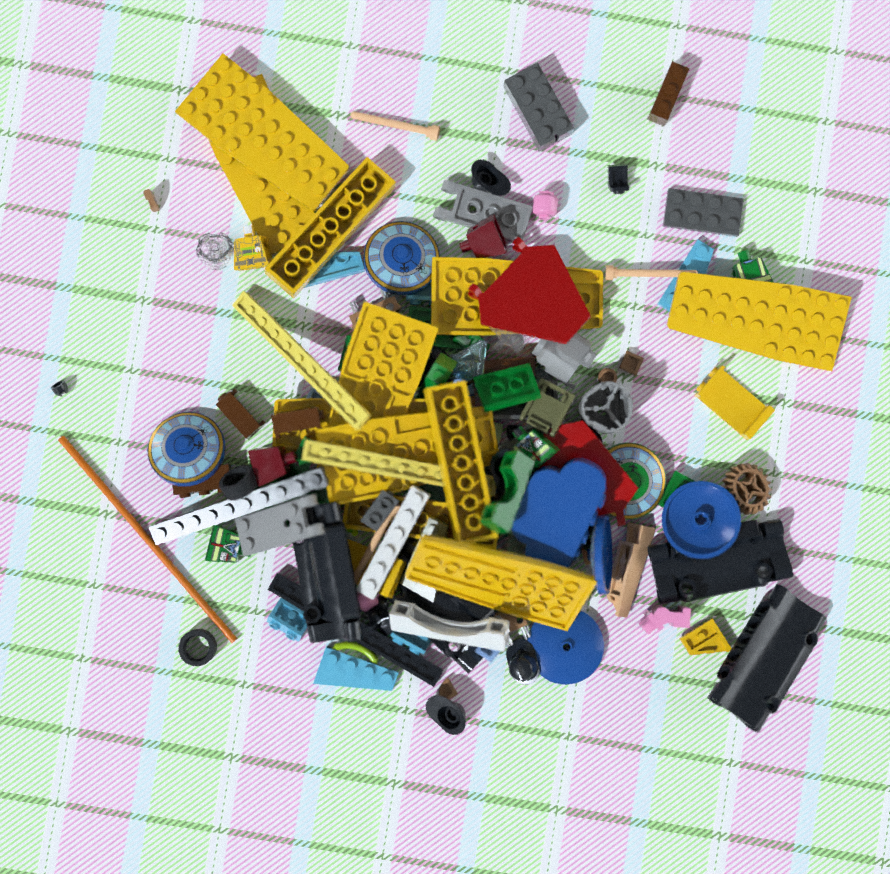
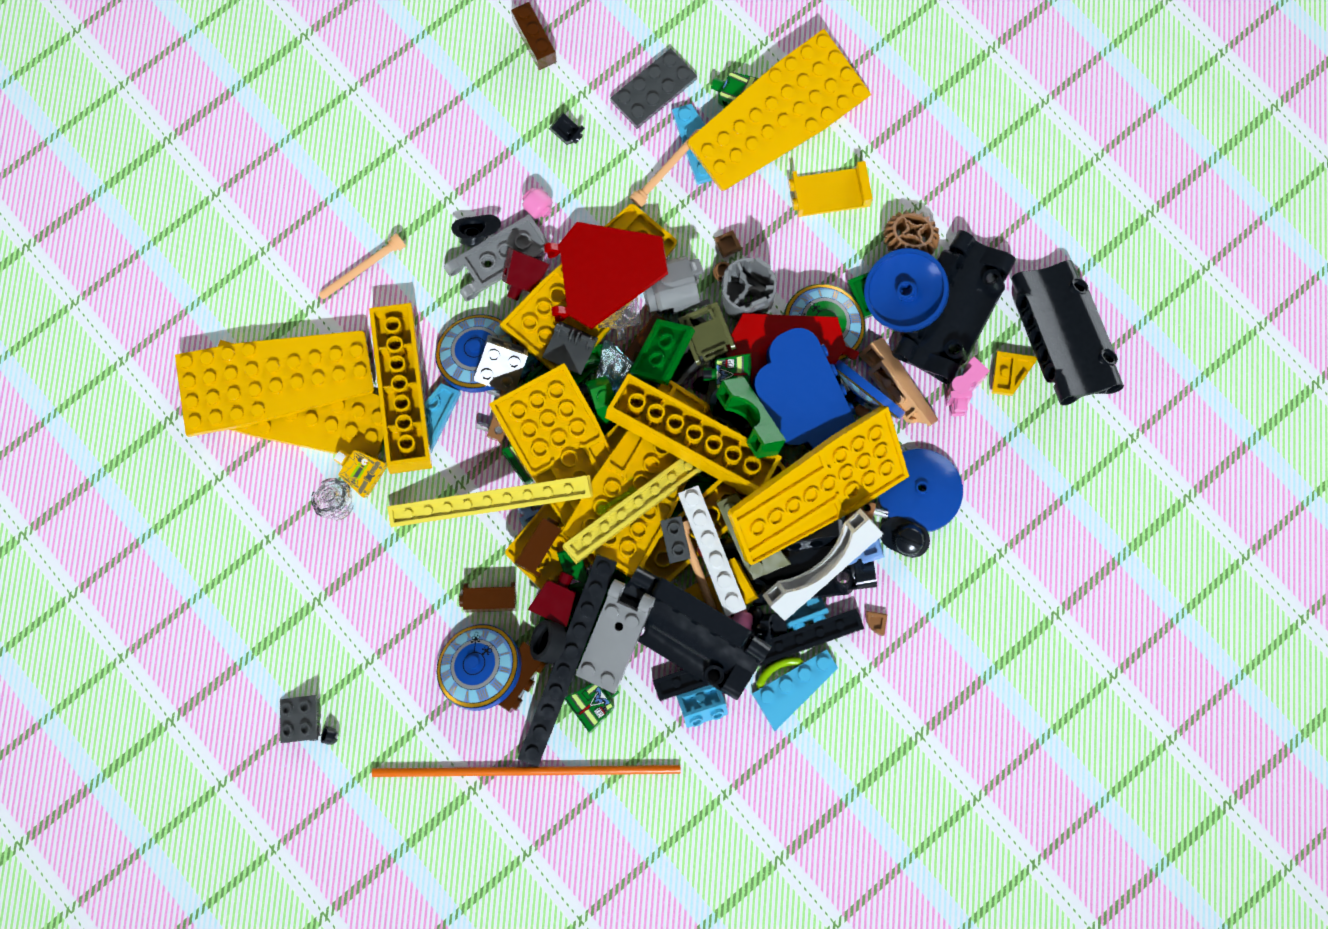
camera: 45 degrees left, 10 degrees down
(53, 359) = (299, 719): none -> dark grey hinge
(149, 195) = (241, 520): medium nougat tile -> none
(182, 647) = (642, 805): black tyre -> none
(356, 443) = (602, 508): none -> clear neon green hinge
(405, 282) = (501, 364): none -> bracket
(447, 714) = (896, 636): black piece -> none
(457, 320) = (570, 347): none -> dark grey hinge
(538, 107) = (452, 143): dark grey piece -> none

